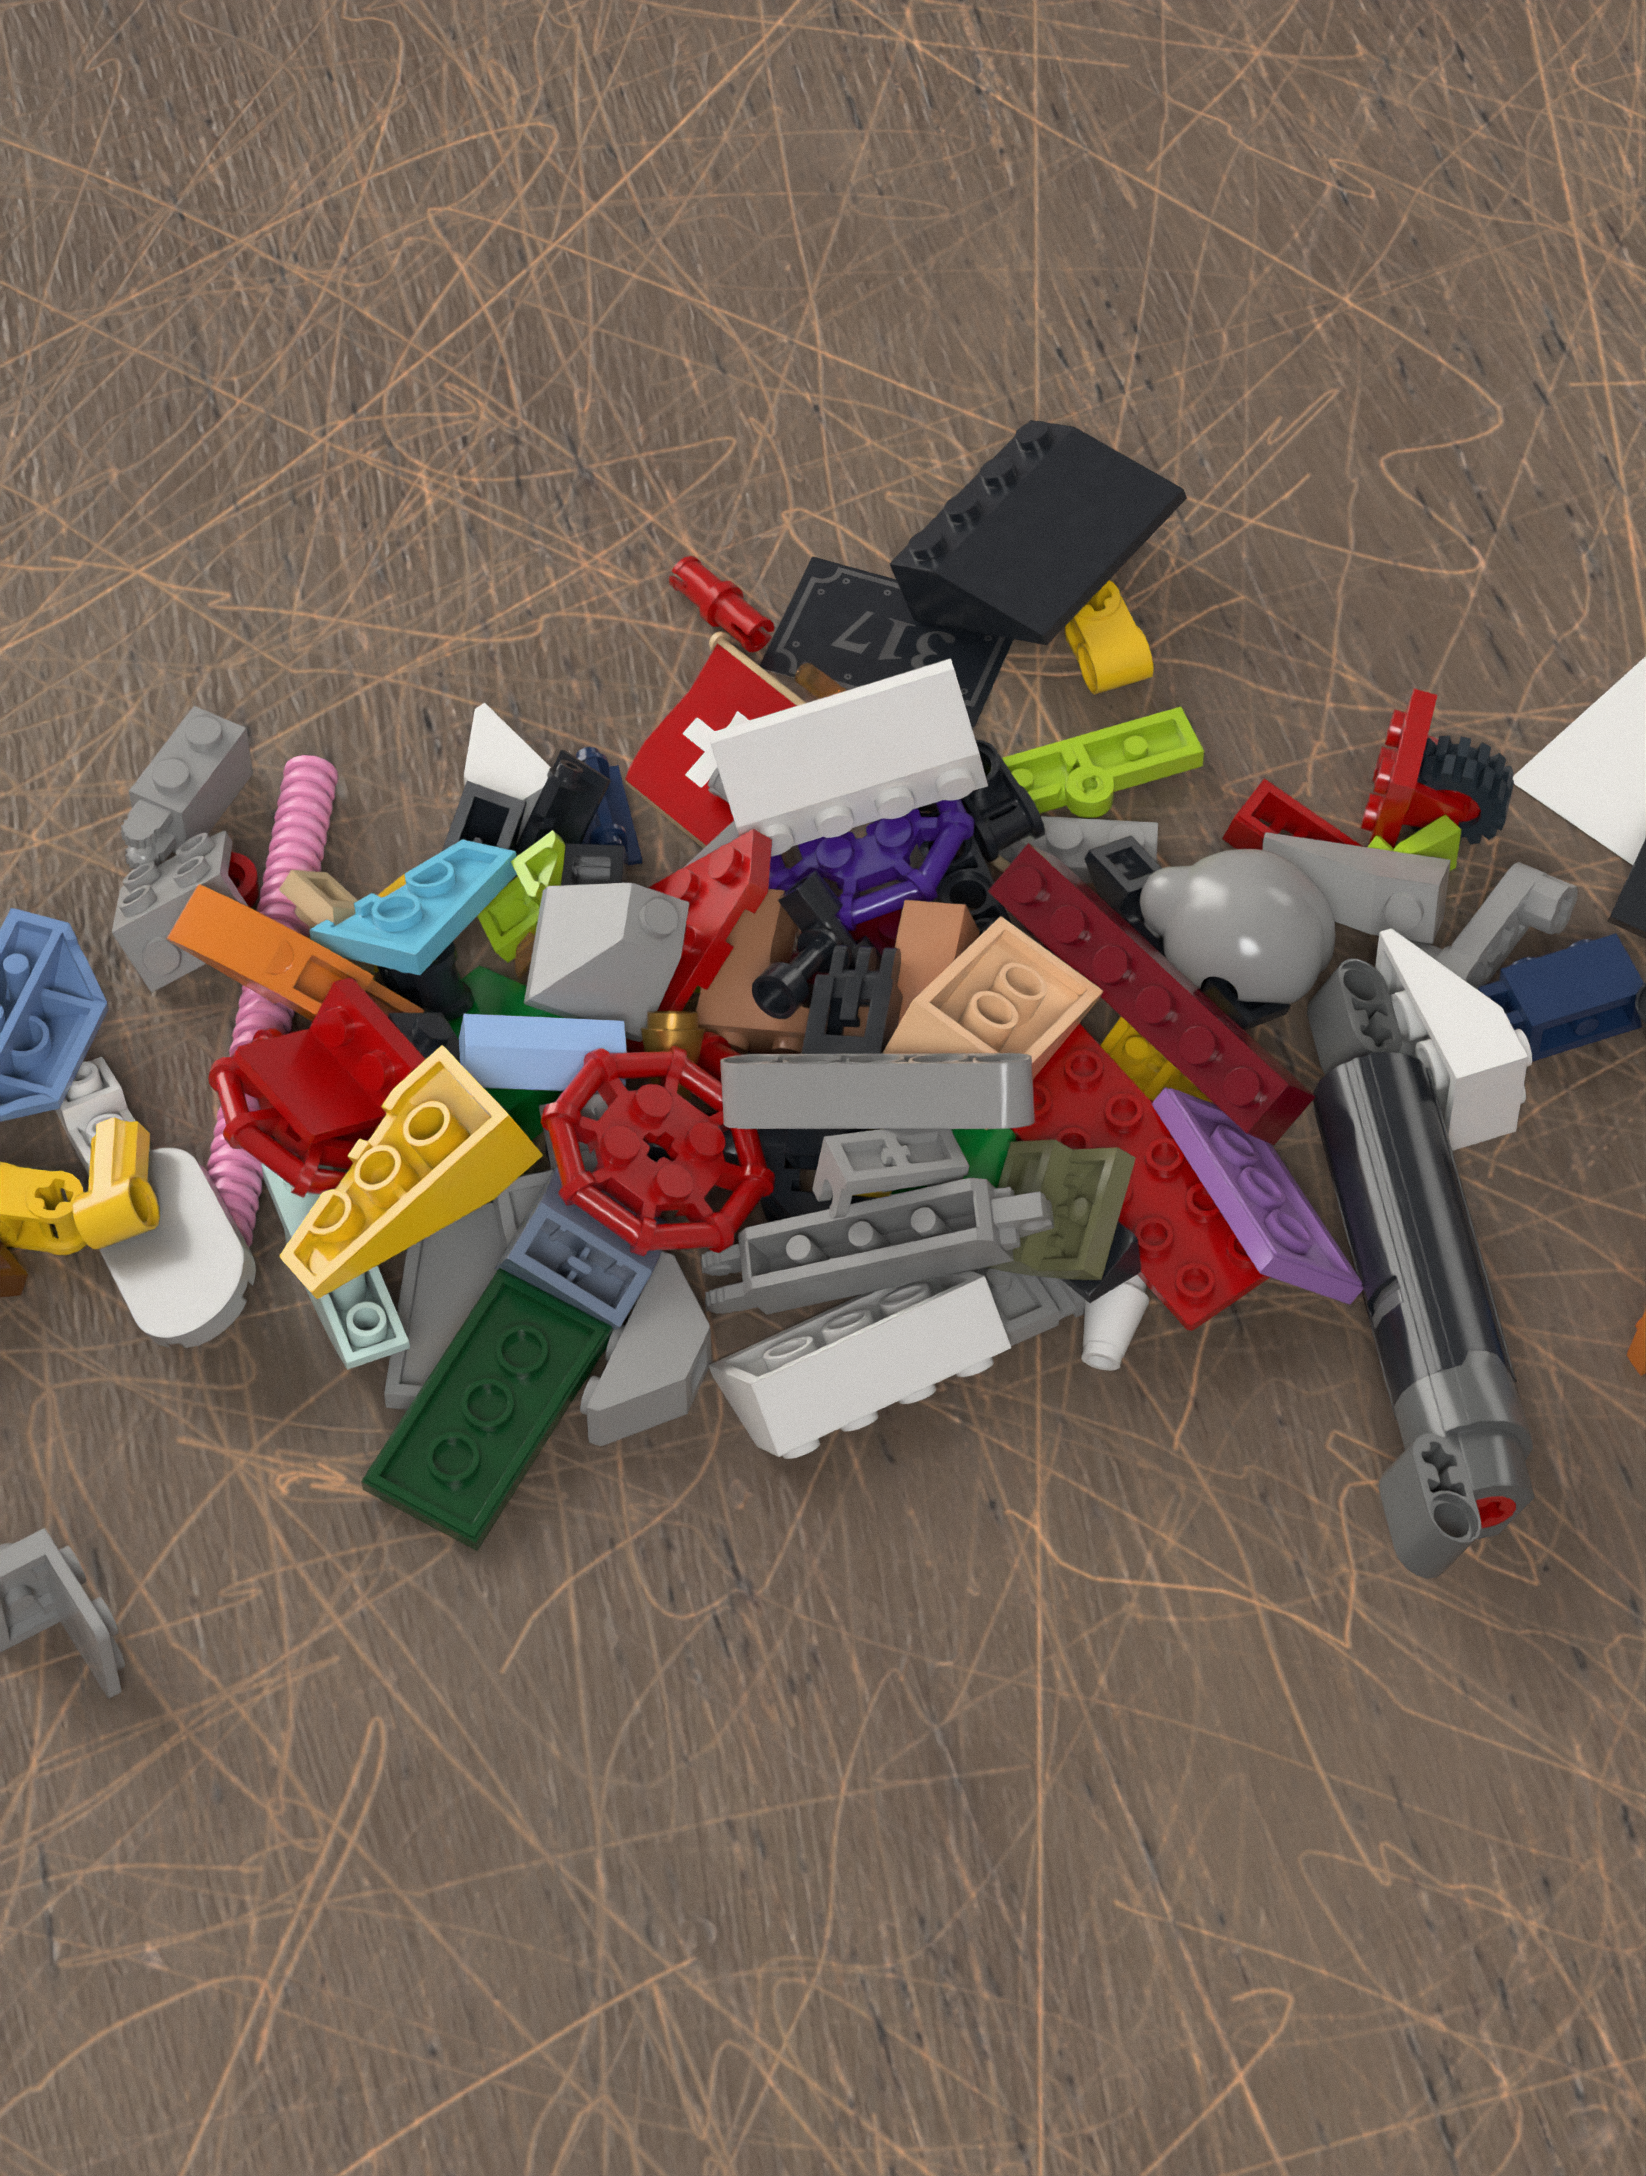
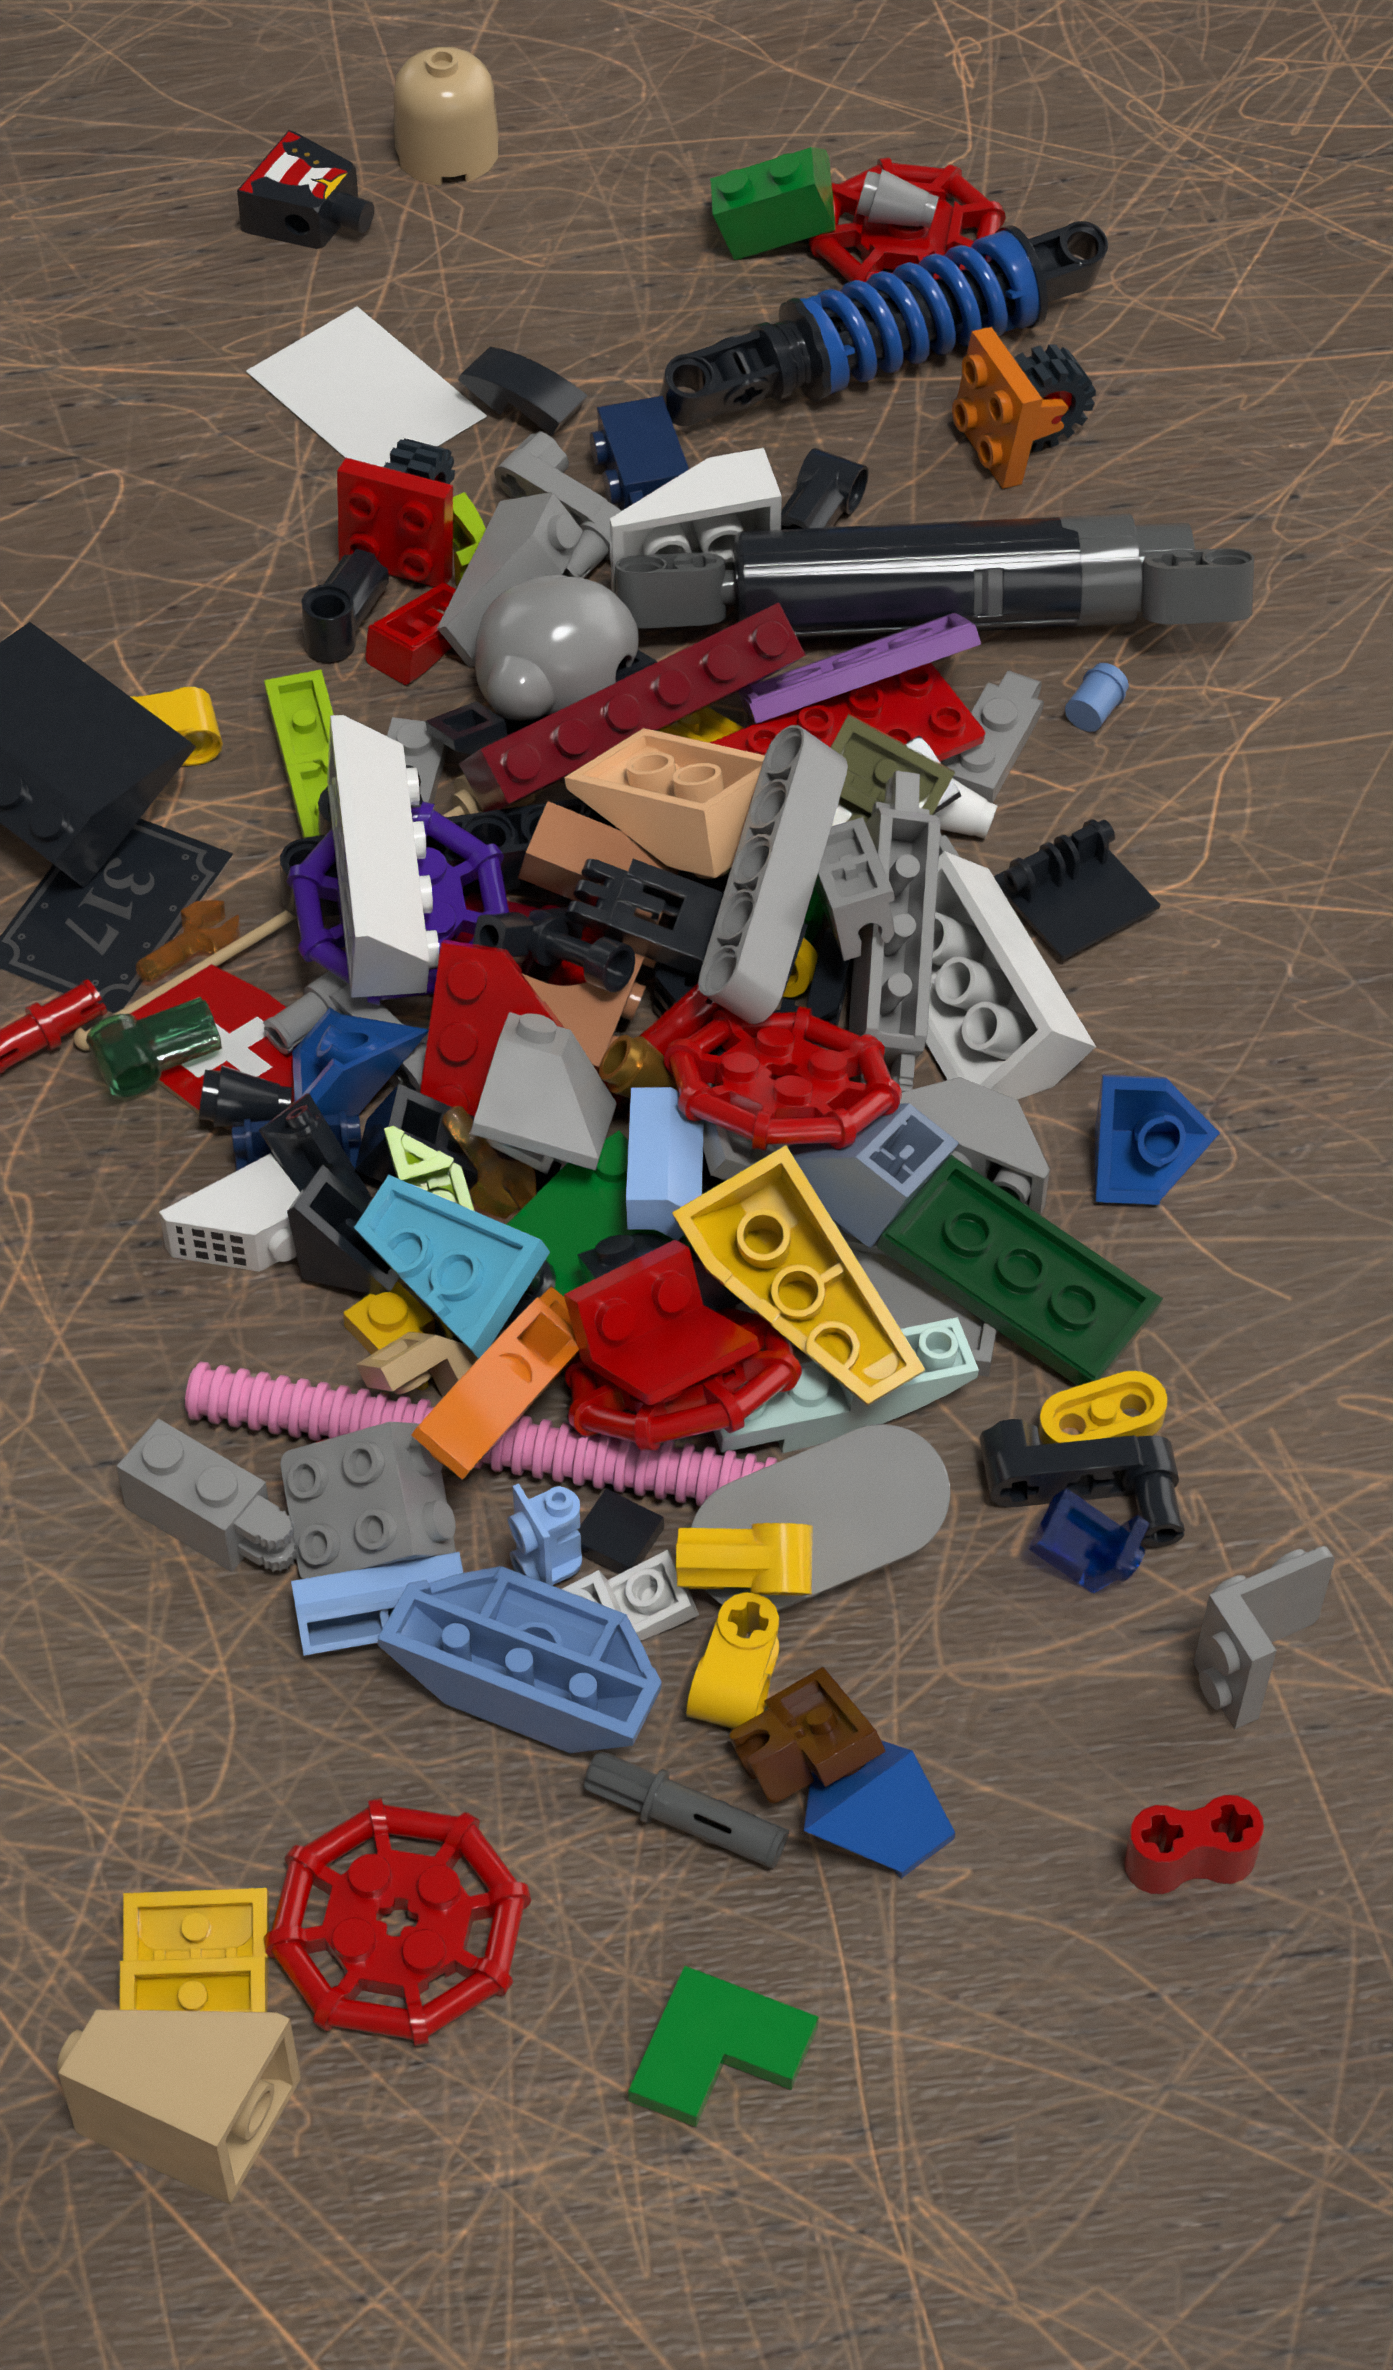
camera: 85 degrees left, 0 degrees up
(87, 903) = (355, 1604): none -> light blue piece
(132, 1031) = (546, 1534): none -> light blue hinge
(173, 1481) = (1088, 1543): none -> clear blue bracket
(179, 1111) = (619, 1532): none -> black tile
(257, 1422) = (1030, 1473): none -> black beam
(329, 1497) = (1098, 1409): none -> yellow plate
(643, 756) = (234, 1096): none -> black cone
(663, 1515) = (1145, 1138): none -> blue slope
(671, 824) = (350, 1060): none -> blue slope
(693, 674) = (137, 1051): none -> clear green piece
(1013, 1444) = (1076, 890): none -> black hinge
(1234, 1363) = (1008, 718): none -> light grey hinge
(1288, 756) = (340, 605): none -> black piece
(1298, 1451) = (1096, 697): none -> medium blue piece
(1566, 1173) = (824, 491): none -> black piece

